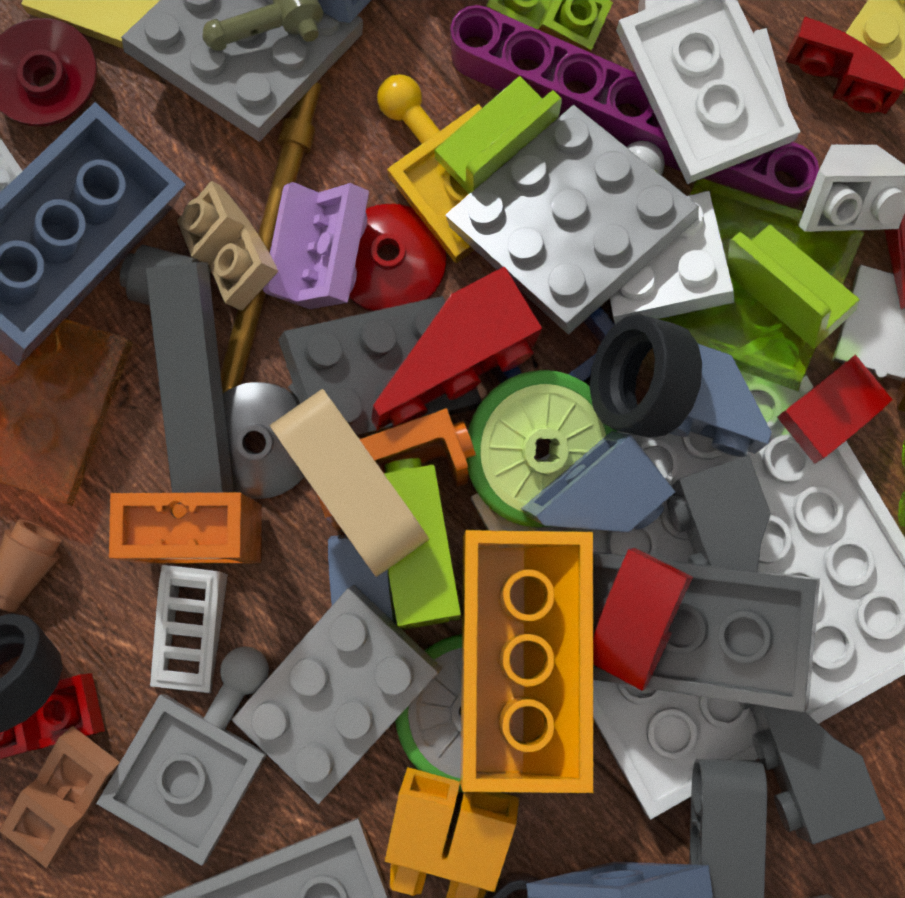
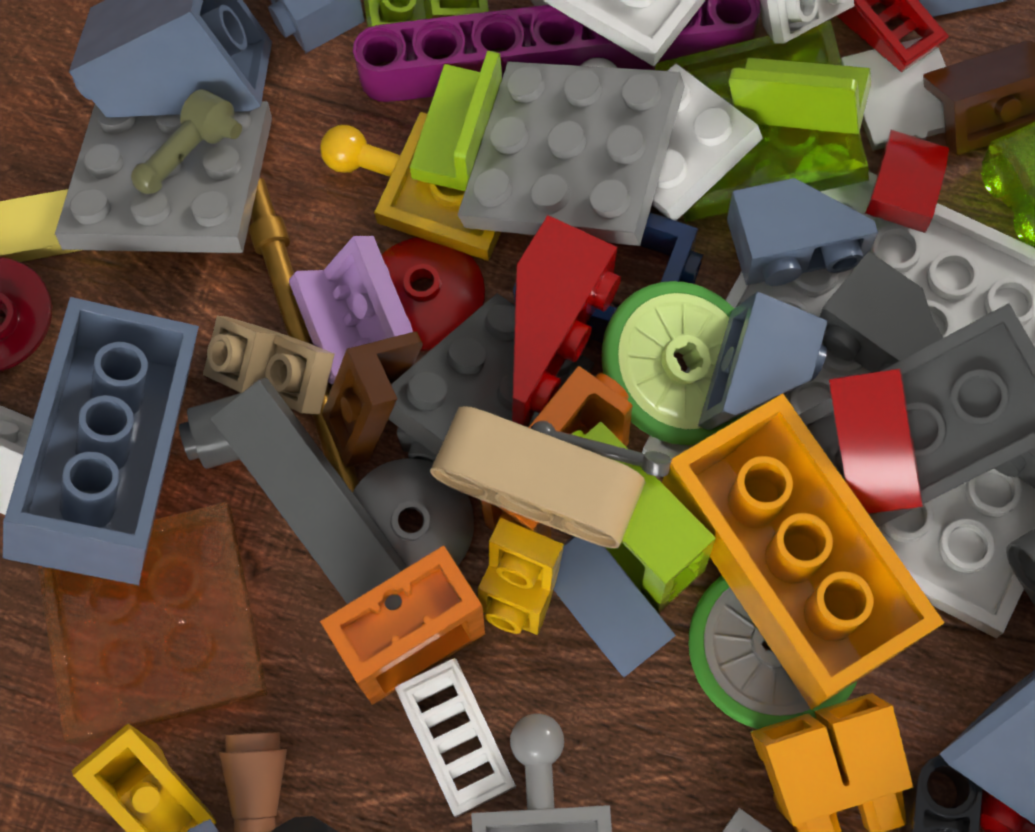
camera: 30 degrees left, 10 degrees down
(272, 316) = (364, 394): none -> reddish brown panel
(302, 542) = (519, 578): none -> yellow slope
(336, 693) = (640, 706): light grey plate -> none
(450, 525) = (651, 462): none -> dark grey hinge
(673, 384) = (769, 228): black tyre -> none

